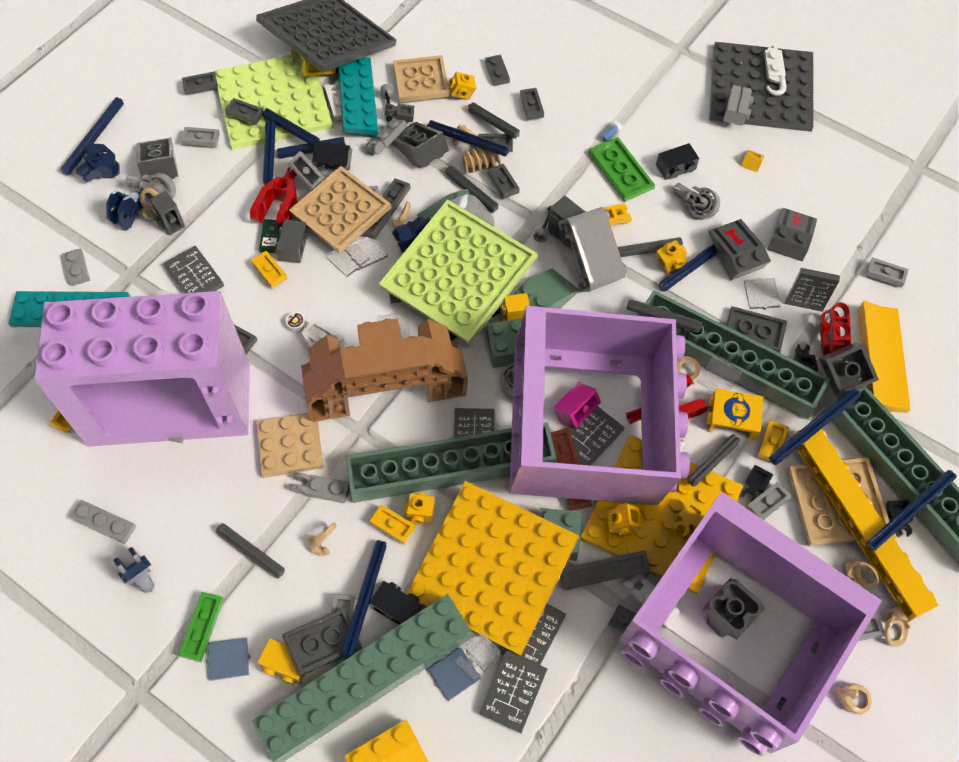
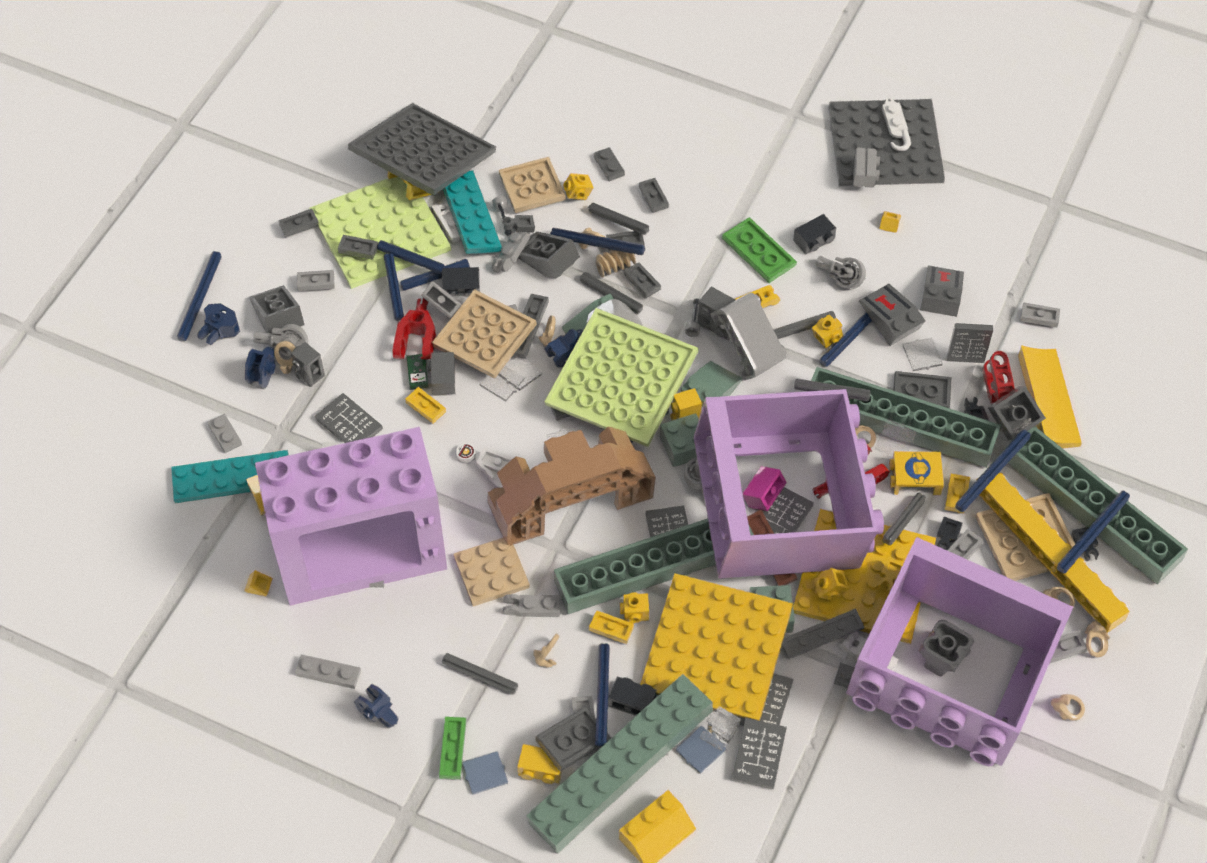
camera: 10 degrees left, 5 degrees down
(614, 128) = (744, 208): medium blue arm -> none

